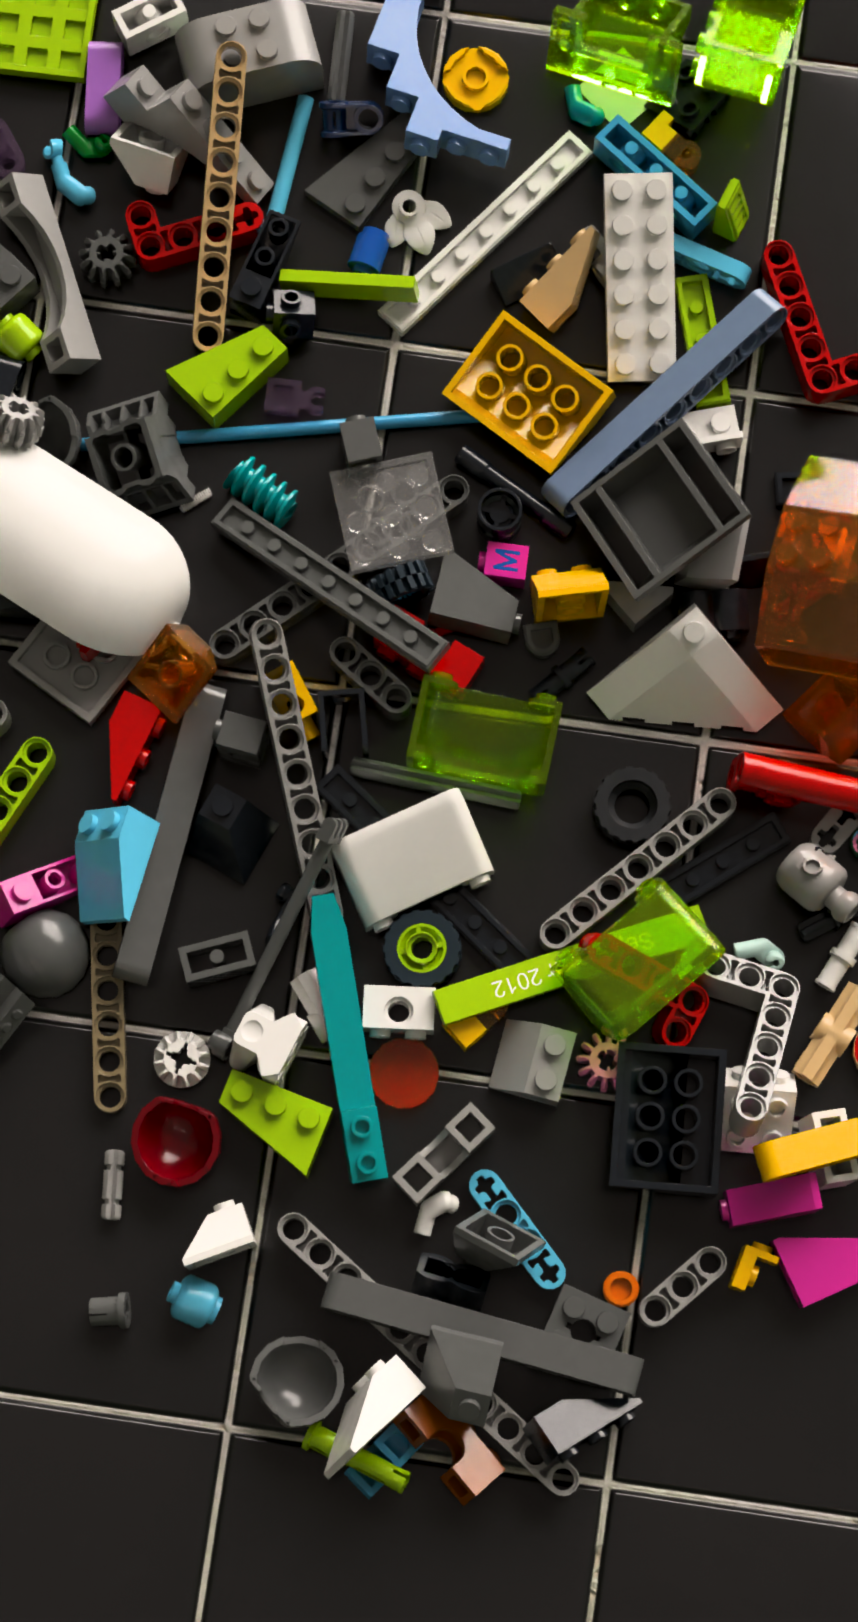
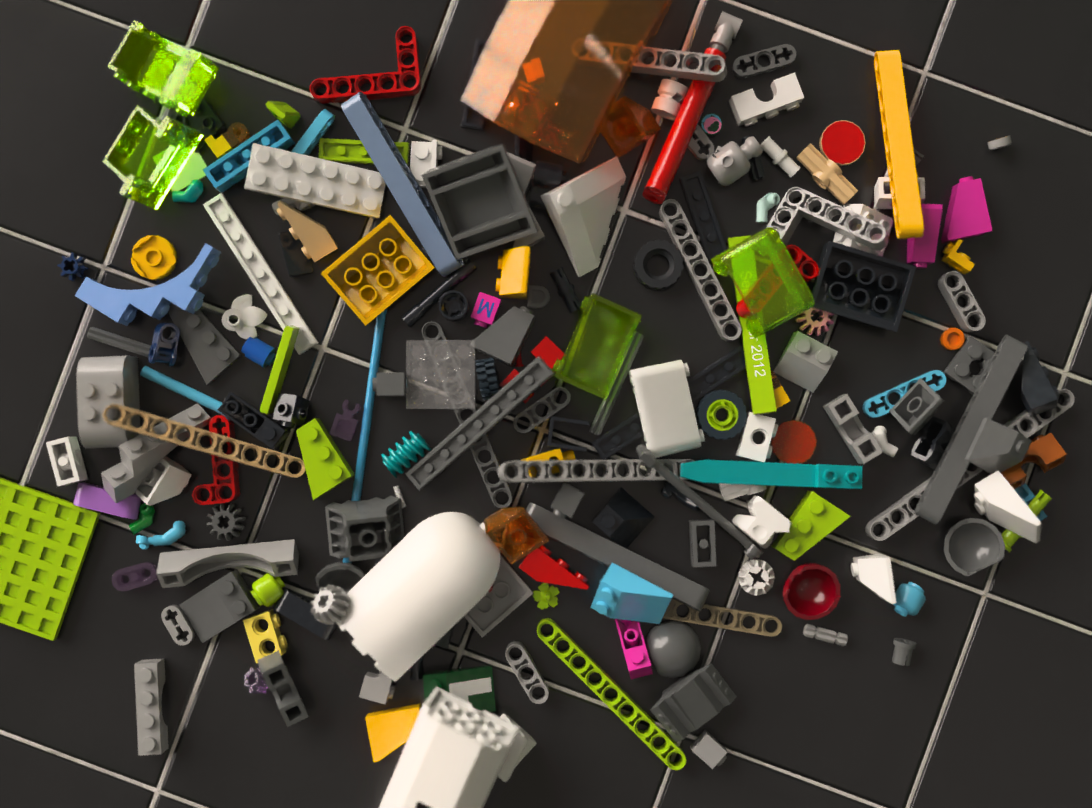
camera: 70 degrees left, 10 degrees up
(89, 746) = (546, 596): none -> lime plant

